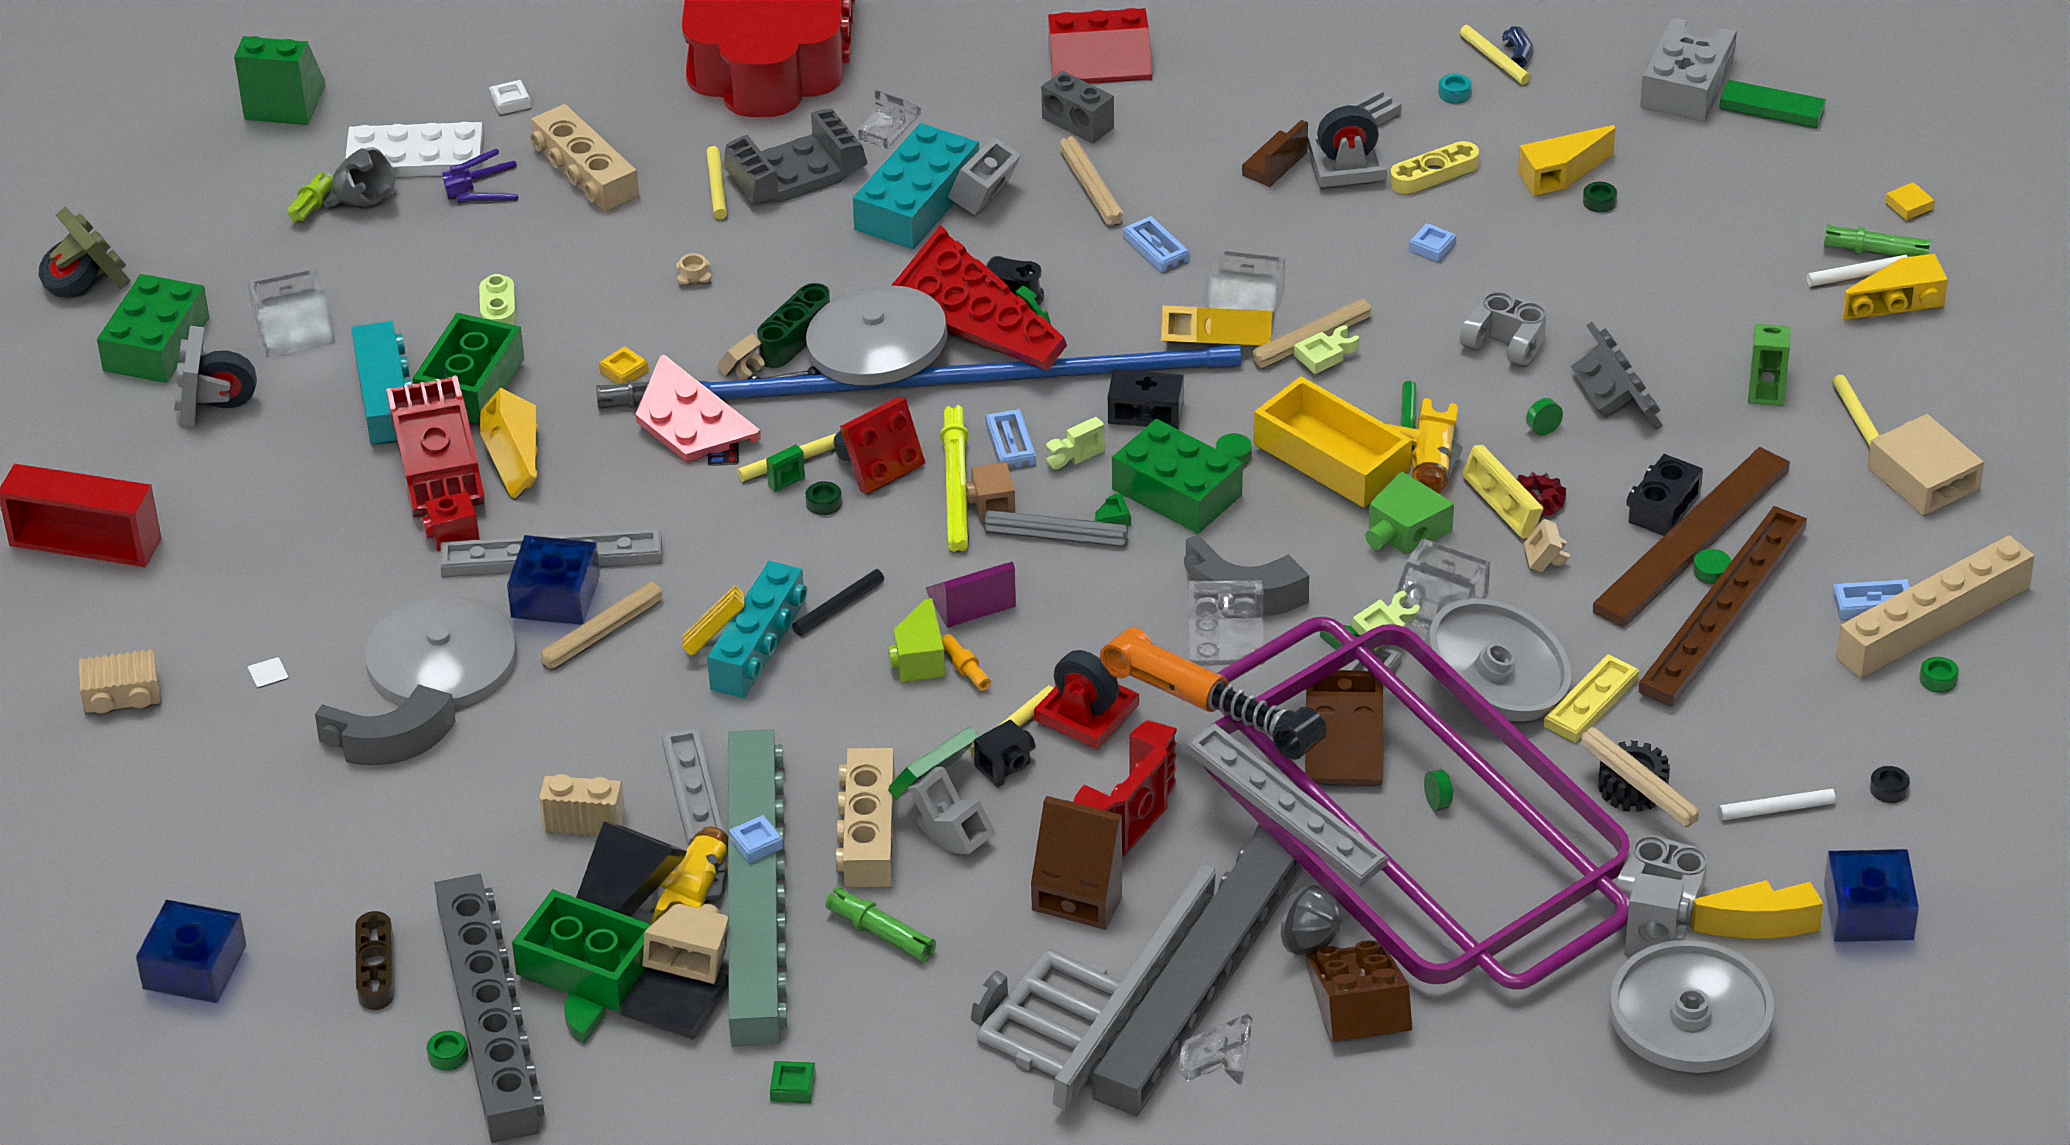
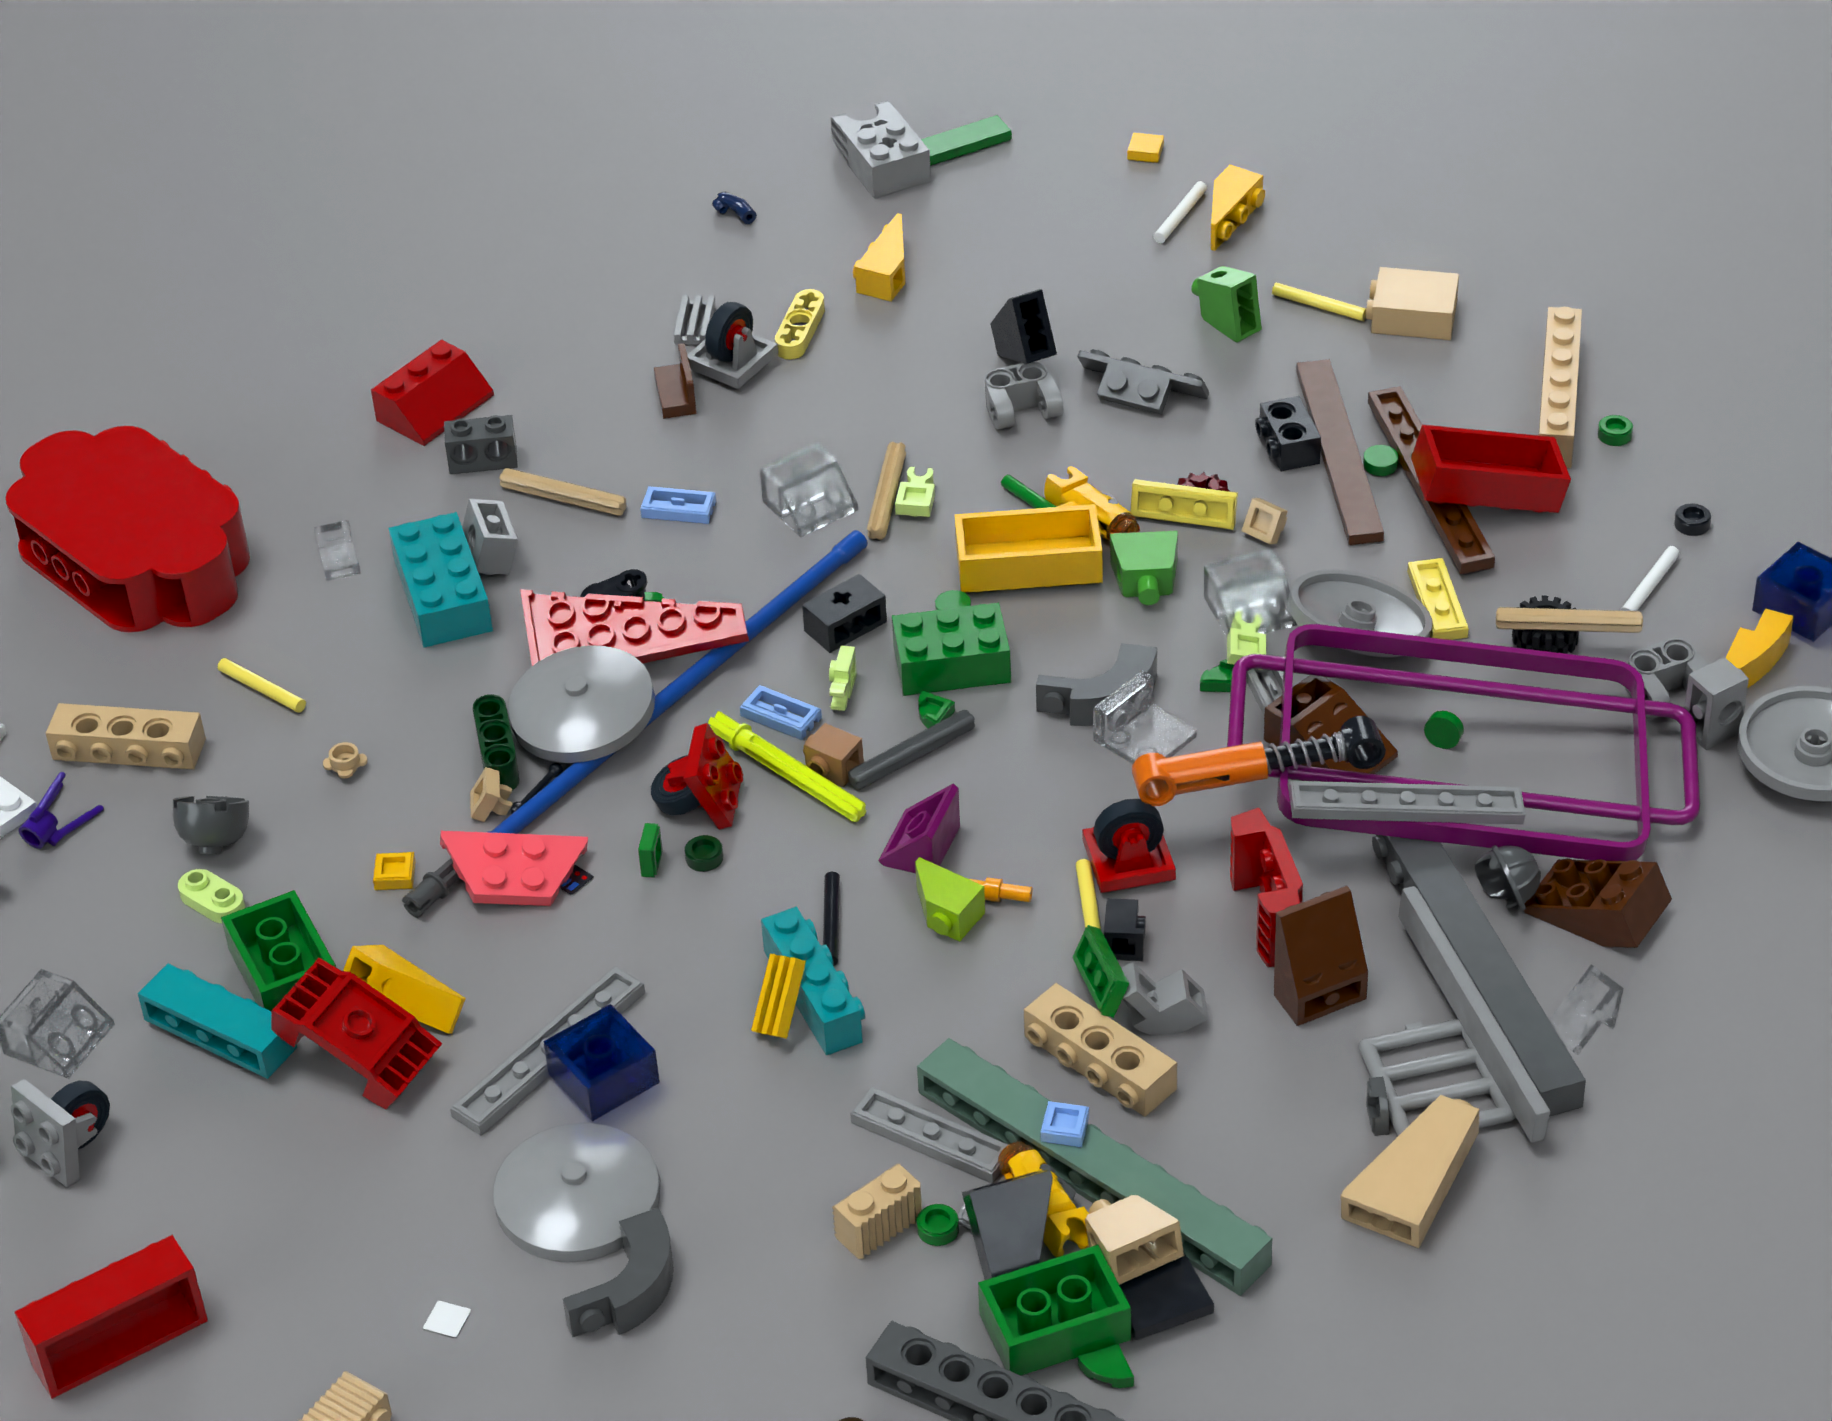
camera: 45 degrees left, 0 degrees up
(450, 519) = (439, 1083): red brick -> none
(548, 248) = (210, 821): none -> dark grey cylinder
(601, 625) = (676, 1072): tan axle -> none
(792, 1081) = (1327, 1282): green tile -> none
(796, 165) = (313, 625): dark grey plate -> none
(809, 450) = (631, 845): light yellow bar -> none
(867, 917) = (1234, 1116): bright green pin -> none
(942, 1055) = (1413, 1175): none -> tan slope
(1216, 325) = (819, 529): yellow slope -> none
(1432, 242) = (874, 375): light blue tile -> none
(1455, 88) = (731, 263): teal tile -> none
(1495, 54) = (725, 223): light yellow bar -> none
(1544, 416) = (1132, 436): green tile -> none
(1560, 274) = (1024, 329): none -> black slope
(1600, 196) = (941, 272): dark green tile -> none
(1756, 623) = (1490, 469): none -> red piece
(1859, 597) = (1511, 414): light blue tile -> none
(1874, 242) = (1159, 189): bright green pin -> none

